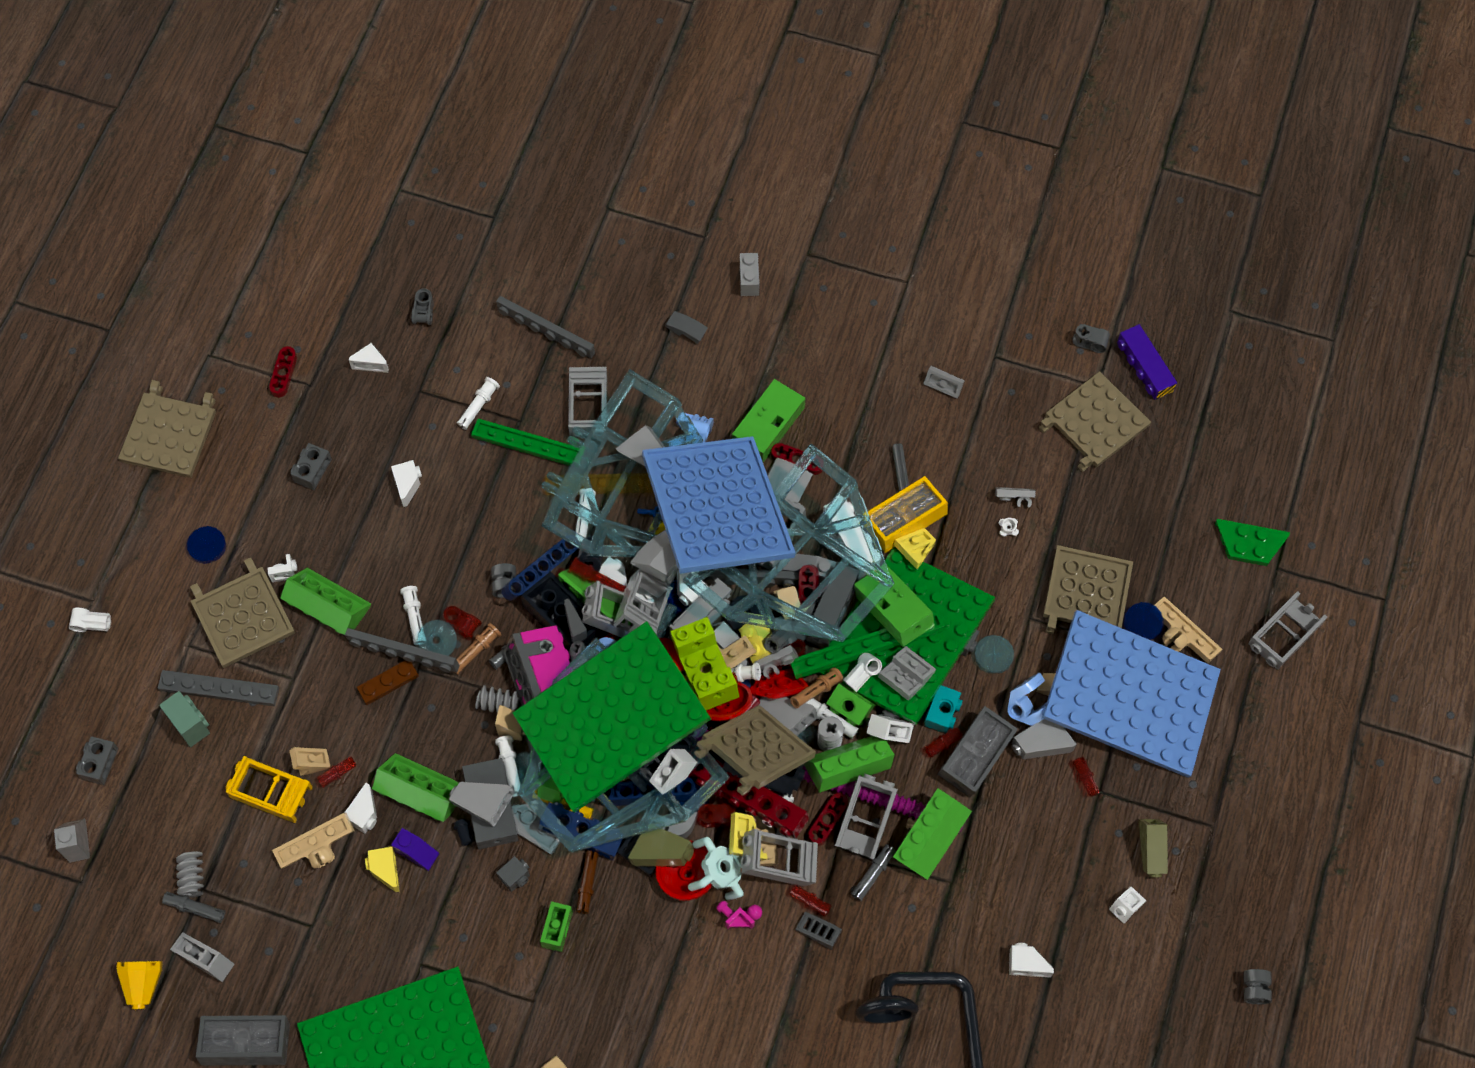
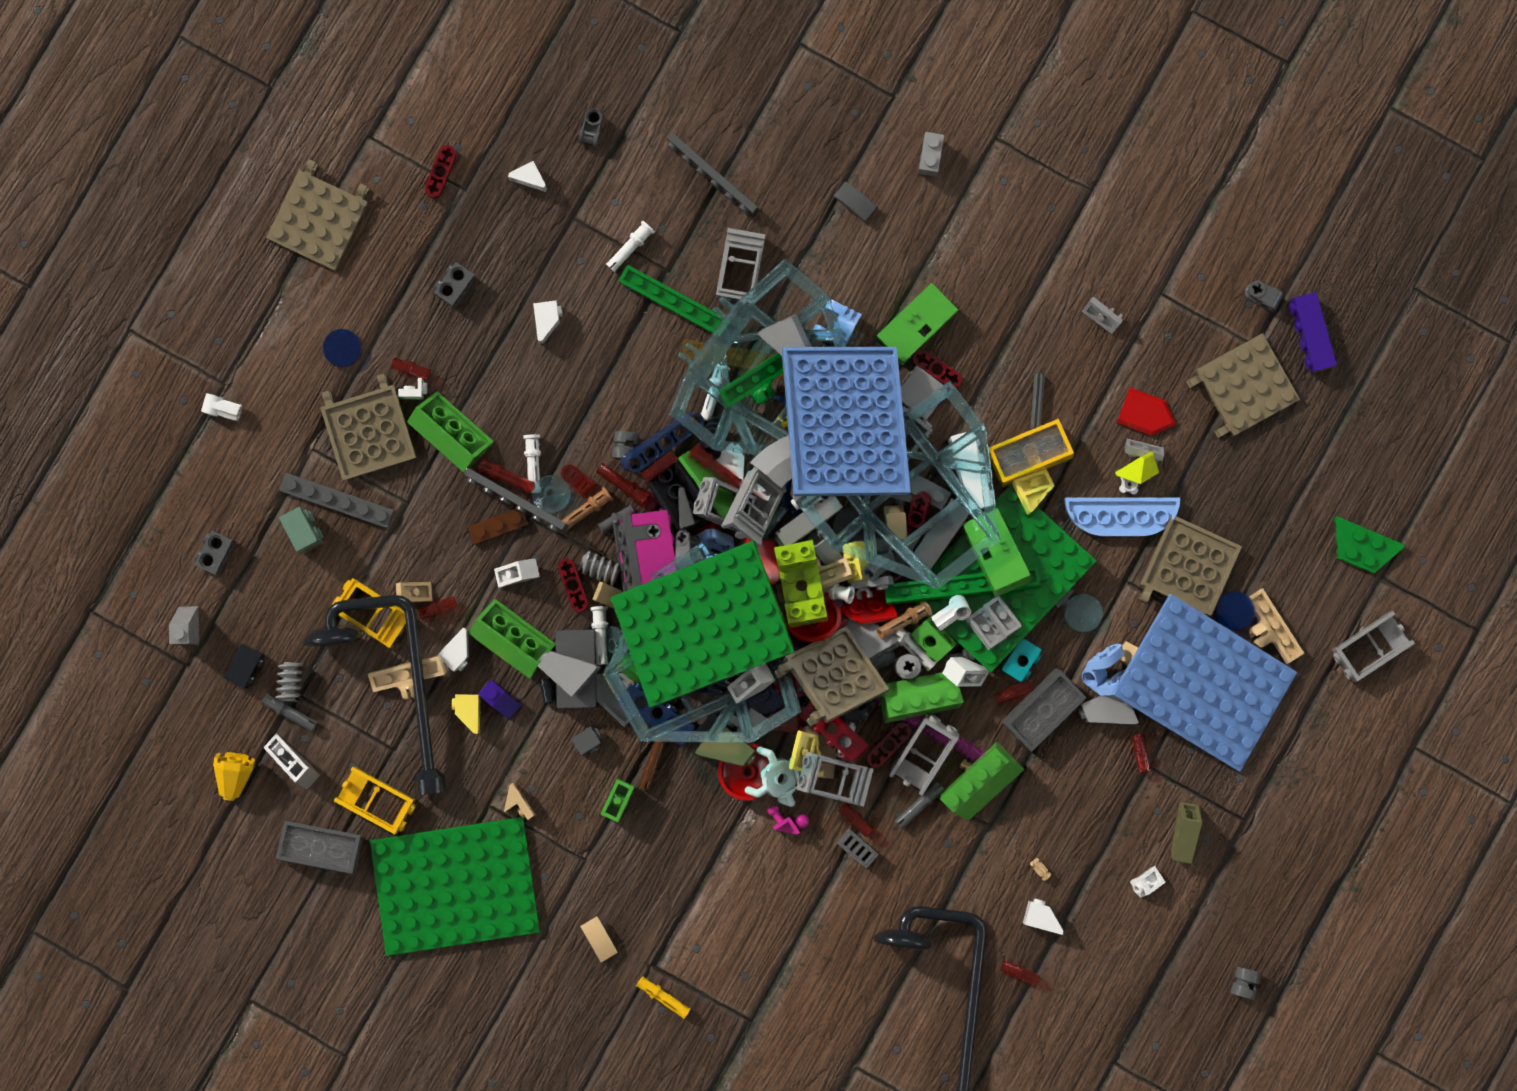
camera: 10 degrees right, 20 degrees up
(140, 868) = (244, 666): none -> black brick
(229, 813) = (429, 779): none -> black piece
(273, 971) = (352, 790): none -> yellow door
(277, 550) = (410, 368): none -> clear red pin
(381, 629) = (497, 473): none -> clear red pin
(413, 721) = (517, 572): none -> white slope
(447, 948) = (516, 798): none -> tan slope
(485, 733) = (573, 569): none -> dark red beam
(516, 621) = (631, 489): none -> clear red pin
(540, 587) = (659, 466): none -> clear red axle
(622, 497) = (754, 383): none -> green plate
(1007, 462) = (1145, 413): none -> red tile
(1008, 556) = (1121, 515): none -> light blue plate
(1014, 914) = (1040, 869): none -> tan piece
(1015, 506) = (1140, 469): none -> neon yellow slope
(1019, 1026) = (1020, 972): none -> clear red axle

